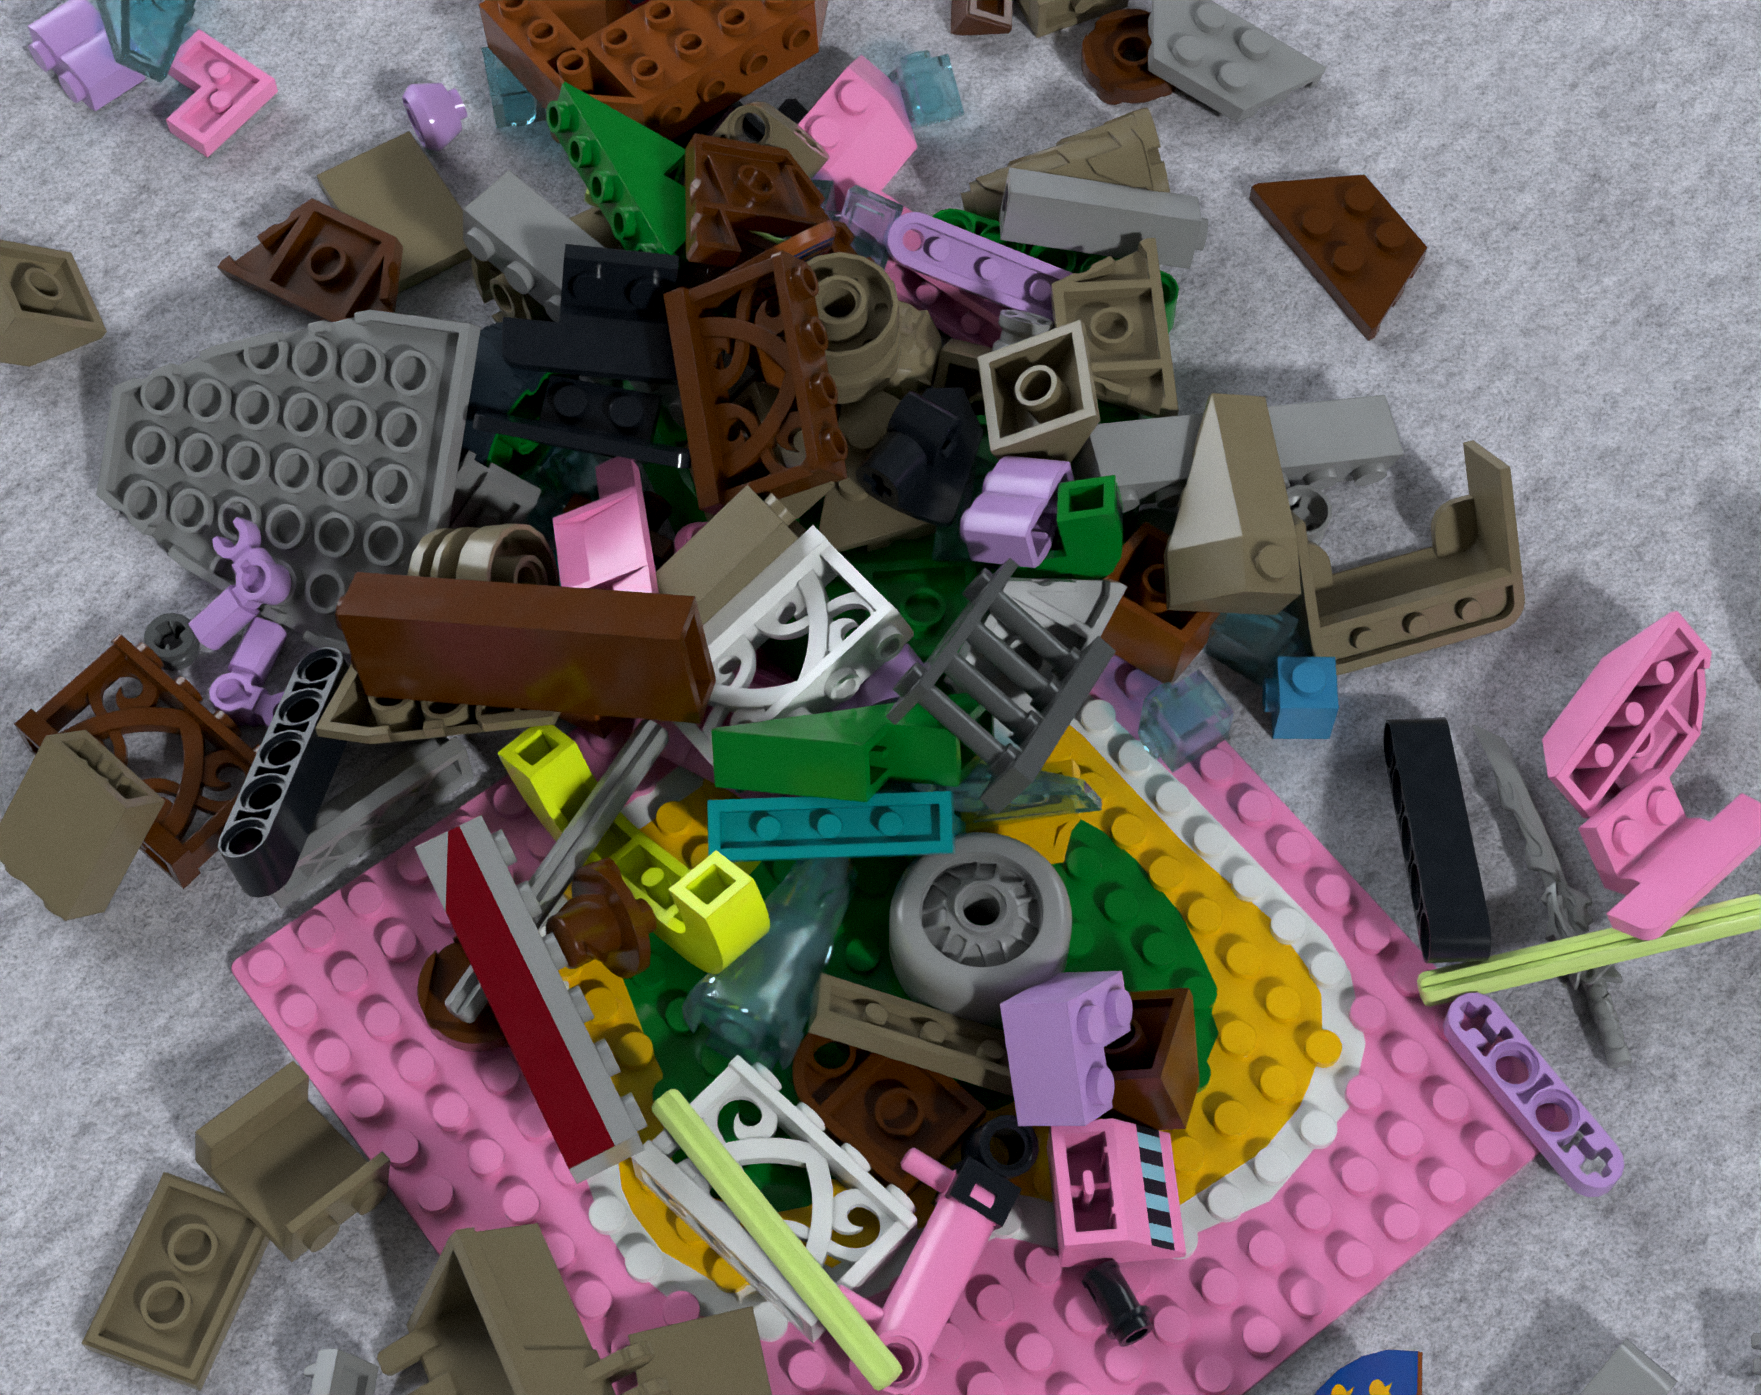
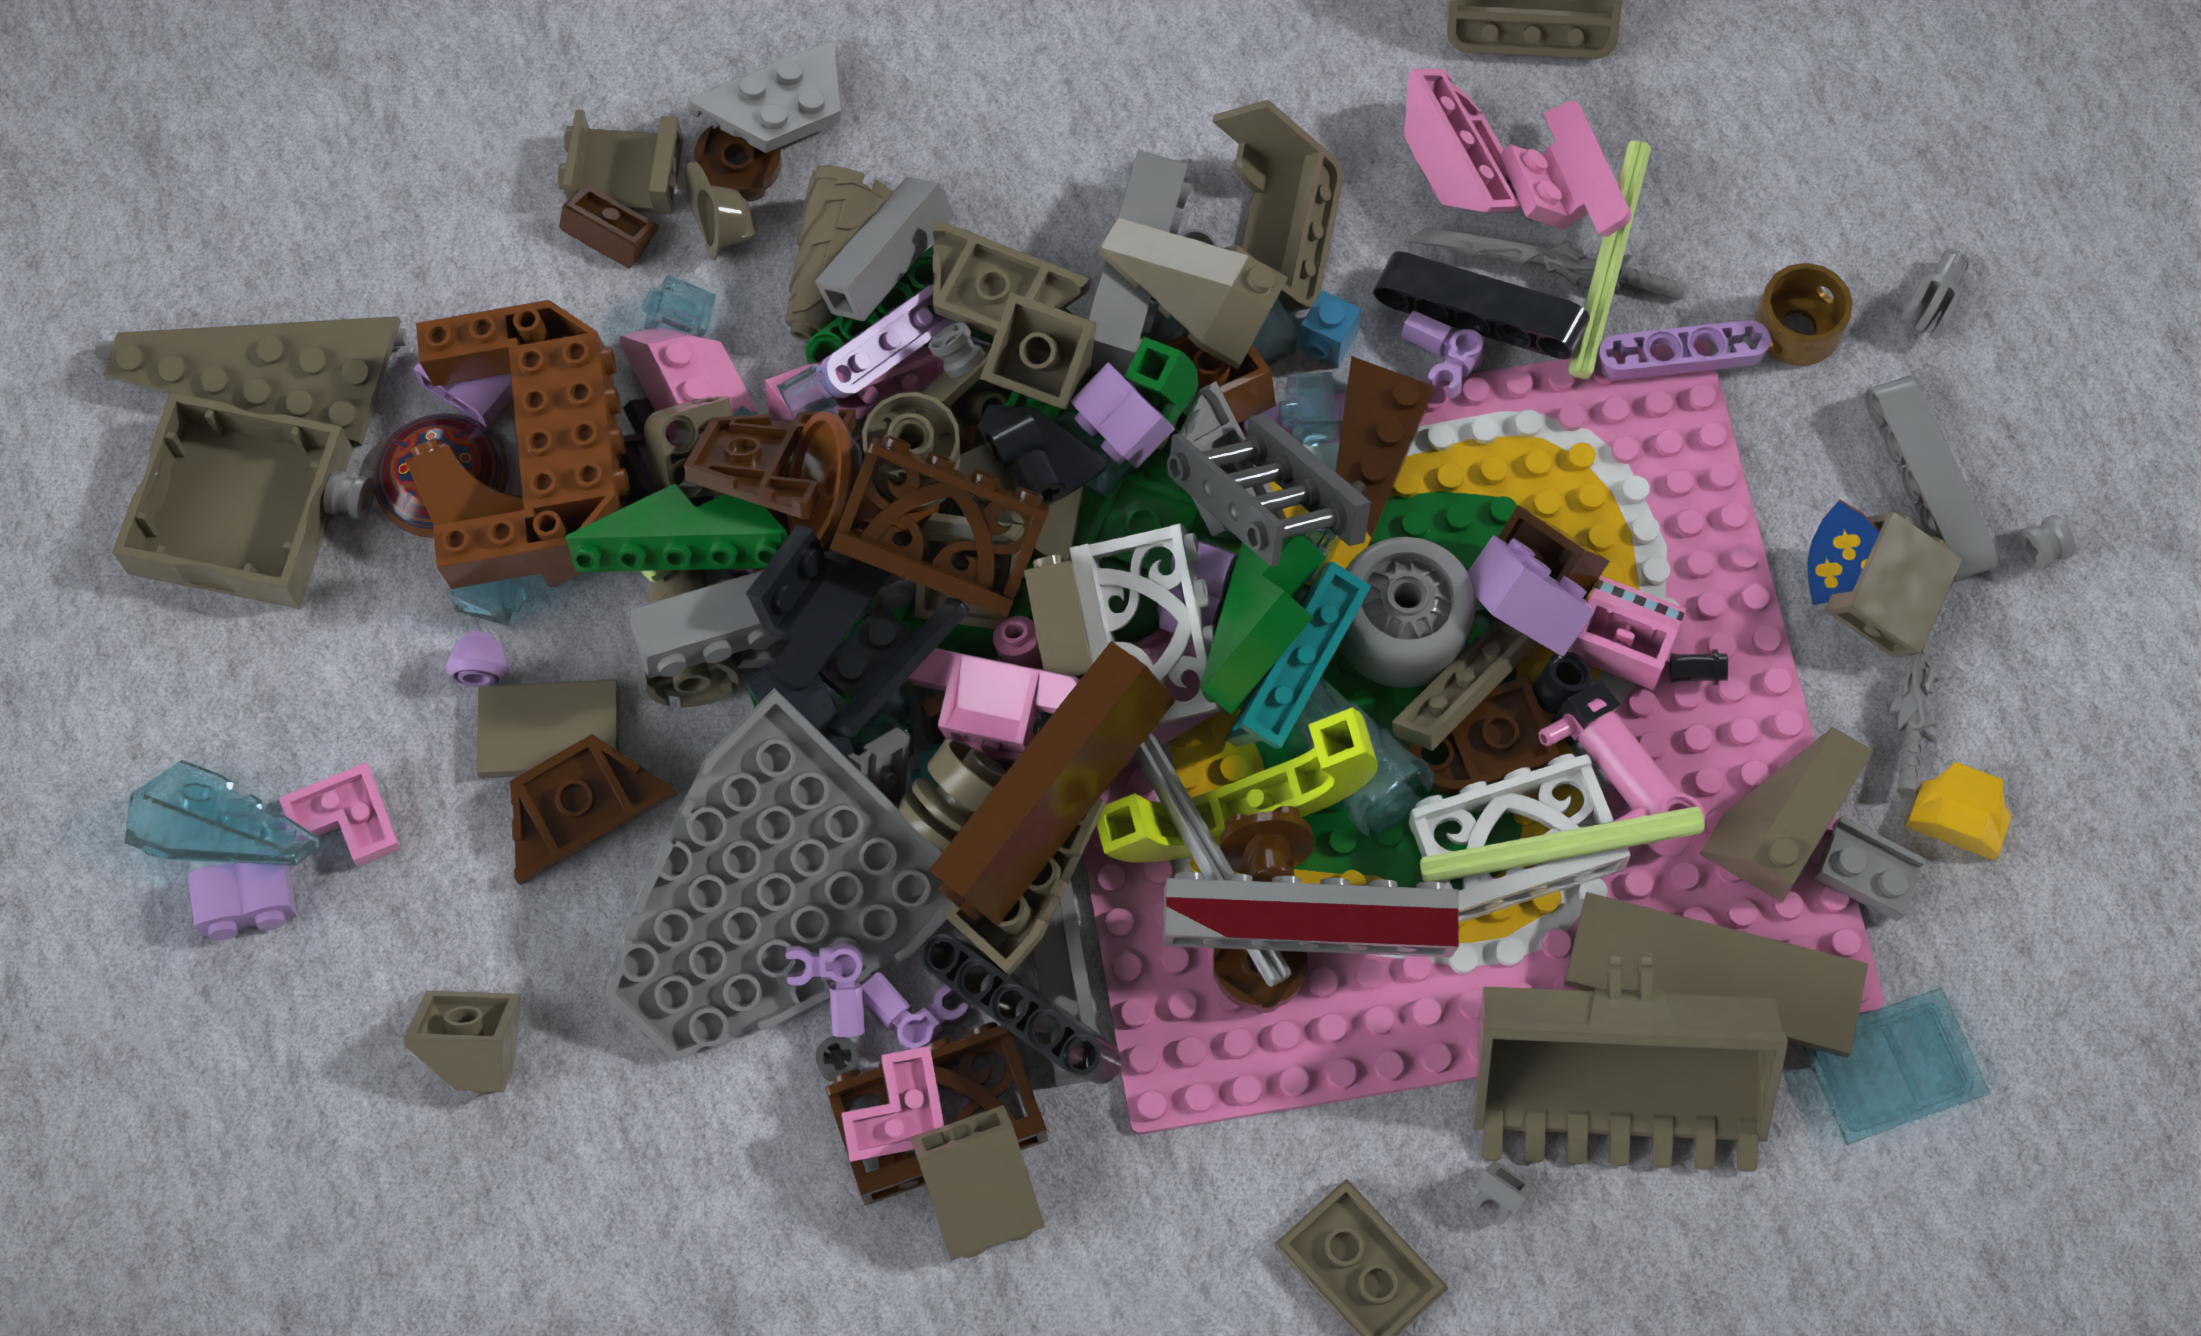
camera: 60 degrees left, 5 degrees up
(127, 720) = (911, 1108): none -> bright pink plate
(289, 1165) = (1325, 1151): dark tan panel -> none
(1052, 71) = (719, 211): none -> dark tan piece
(1195, 810) = (1378, 430): none -> reddish brown wing
(1346, 241) = (981, 108): reddish brown wing -> none
(1369, 846) = (1460, 349): none -> lavender bar
(1699, 1186) = (1800, 292): none -> pearl gold piece

